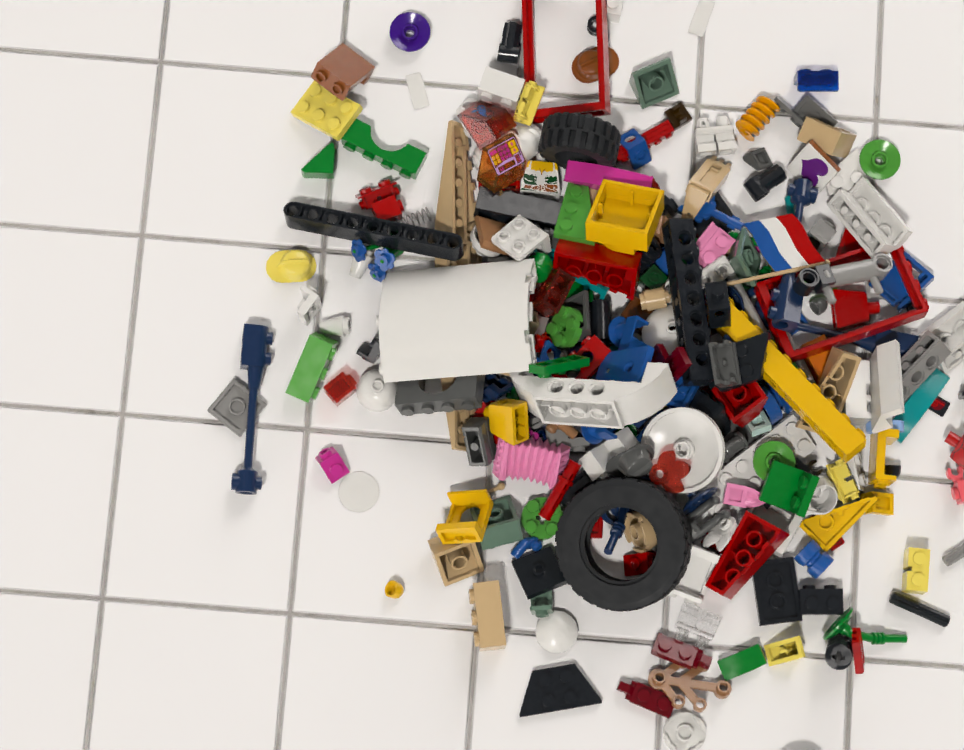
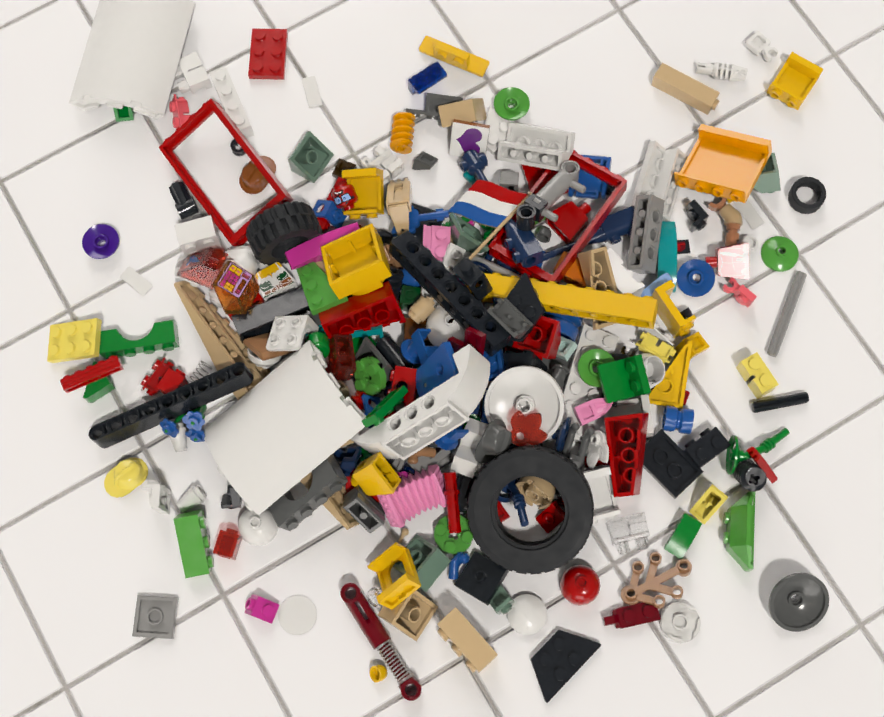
camera: 25 degrees left, 5 degrees down
(254, 359) = (144, 570): dark blue bar -> none
(322, 153) = (91, 374): none -> red piece
(342, 71) = (65, 303): panel -> none
(414, 562) = (379, 639): none -> dark red piece
(432, 522) = (372, 596): none -> clear tile
(528, 103) = (226, 231): light yellow hinge -> none
(620, 639) = (580, 585): none -> red cylinder
(659, 143) = (344, 196): none -> red head
(680, 153) = (370, 192): none -> yellow panel
(680, 653) = (632, 562): hinge -> none
(760, 185) = (440, 177): black piece -> none
(796, 693) = (740, 531): none -> bright green wedge
(859, 74) = (454, 56): none -> yellow bracket
(885, 386) = (638, 255): white slope -> none
(918, 445) = (688, 284): none -> blue dish

